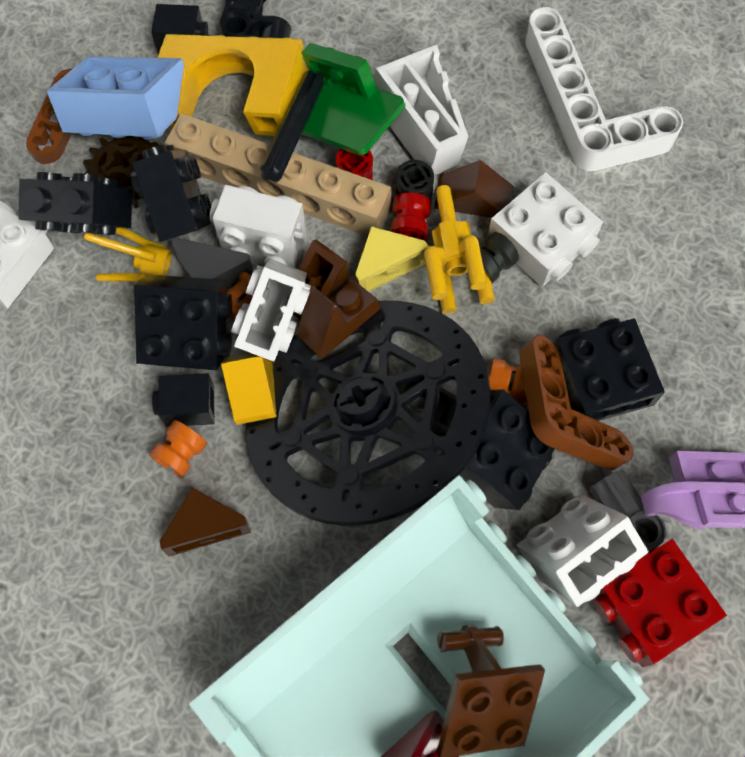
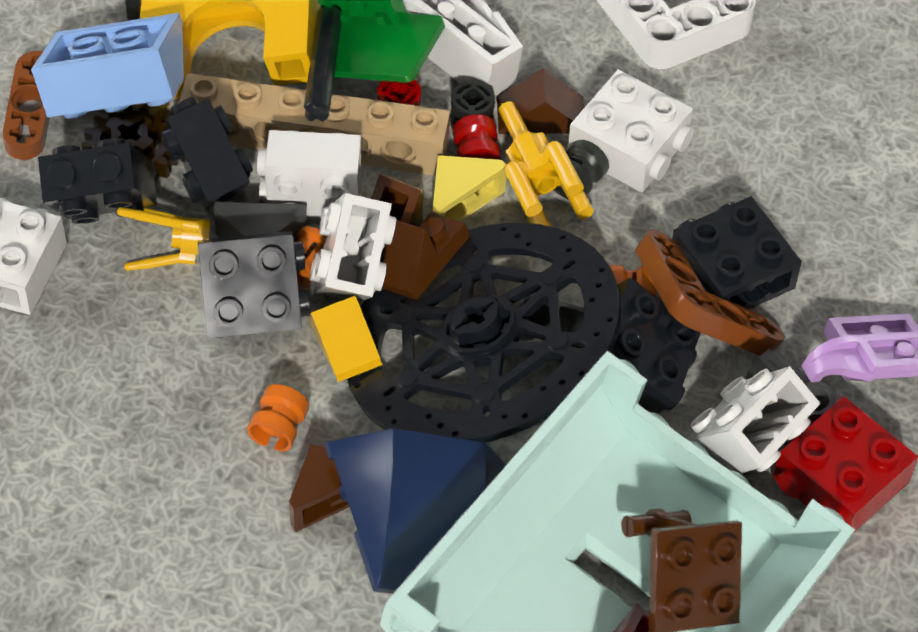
camera: 15 degrees left, 15 degrees down
(185, 399) = (269, 362): black brick -> none
(266, 567) = (407, 494): none -> dark blue wedge

